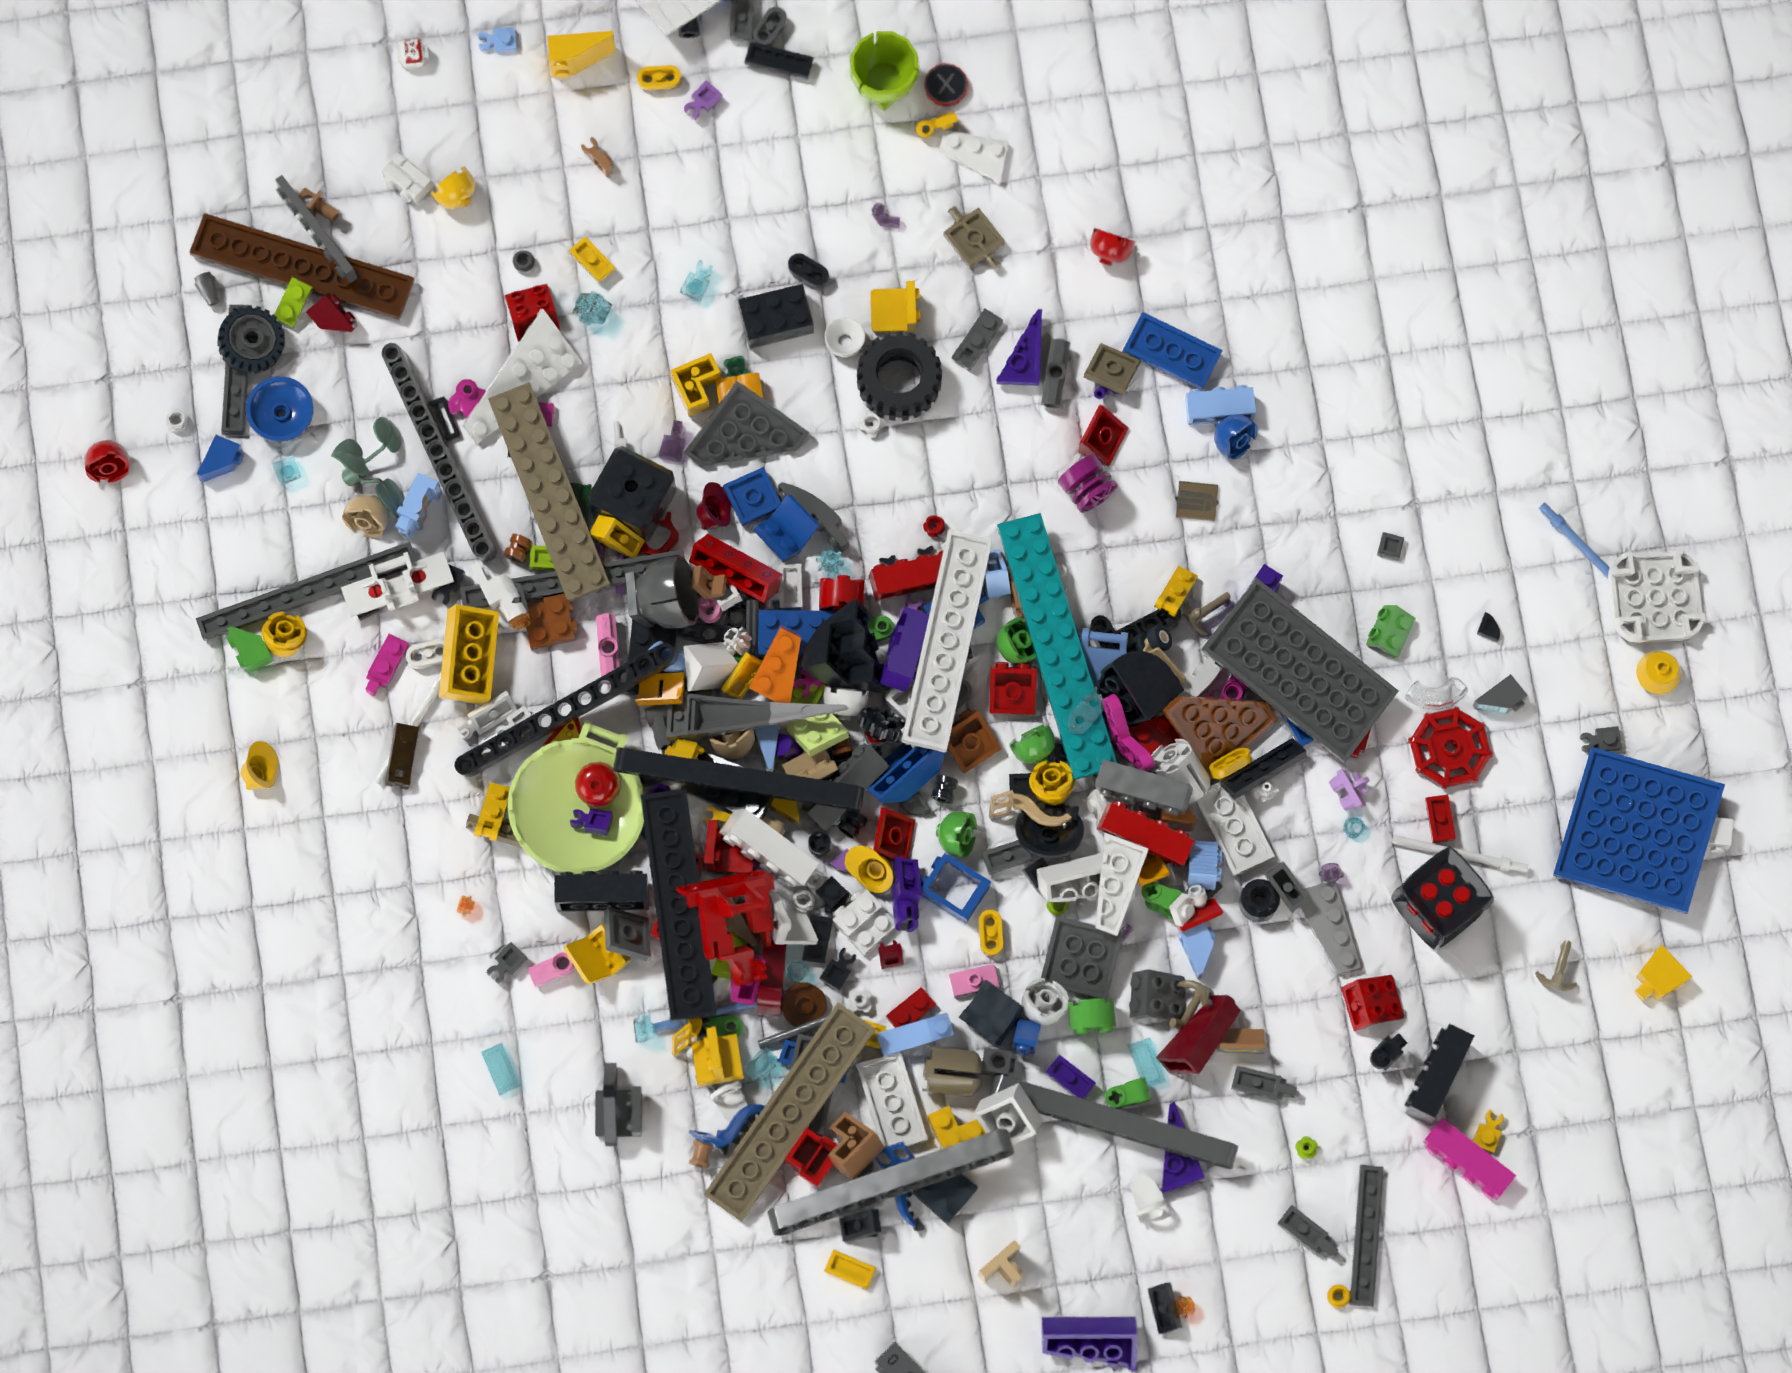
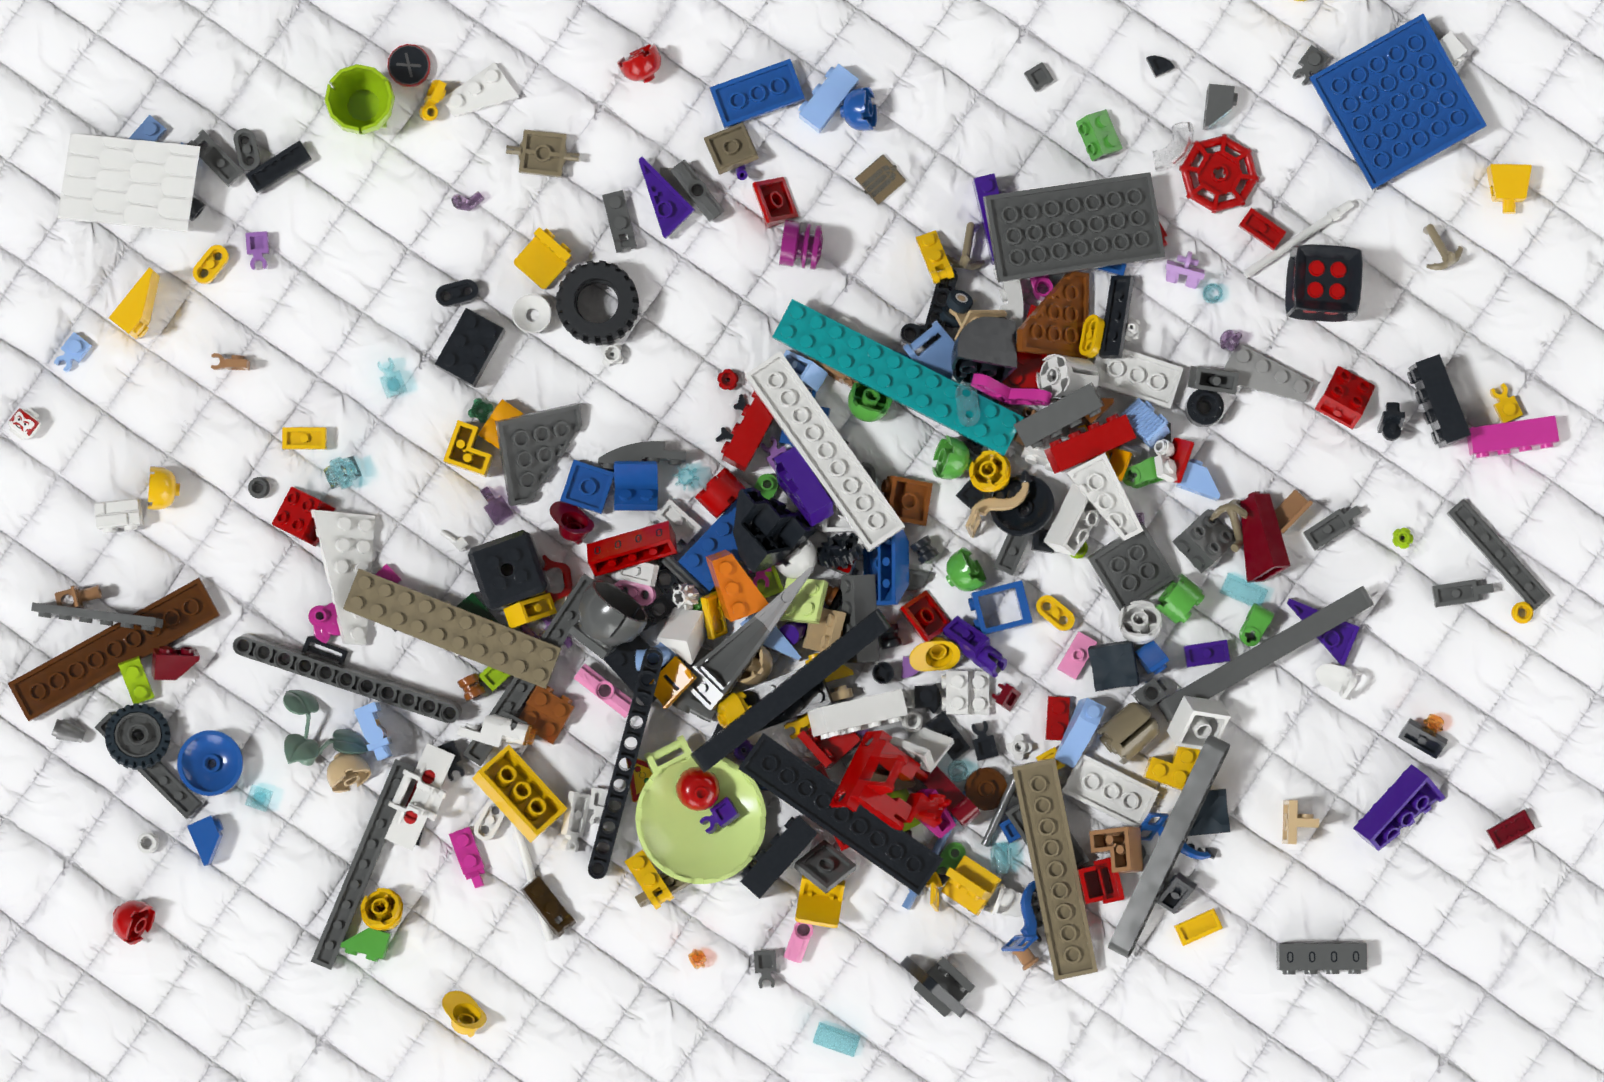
camera: 45 degrees left, 10 degrees up
(643, 1028) = (901, 915): clear light blue plate -> none
(706, 584) = (627, 579): medium nougat bracket -> none
(1012, 689) = (897, 435): red plate -> none

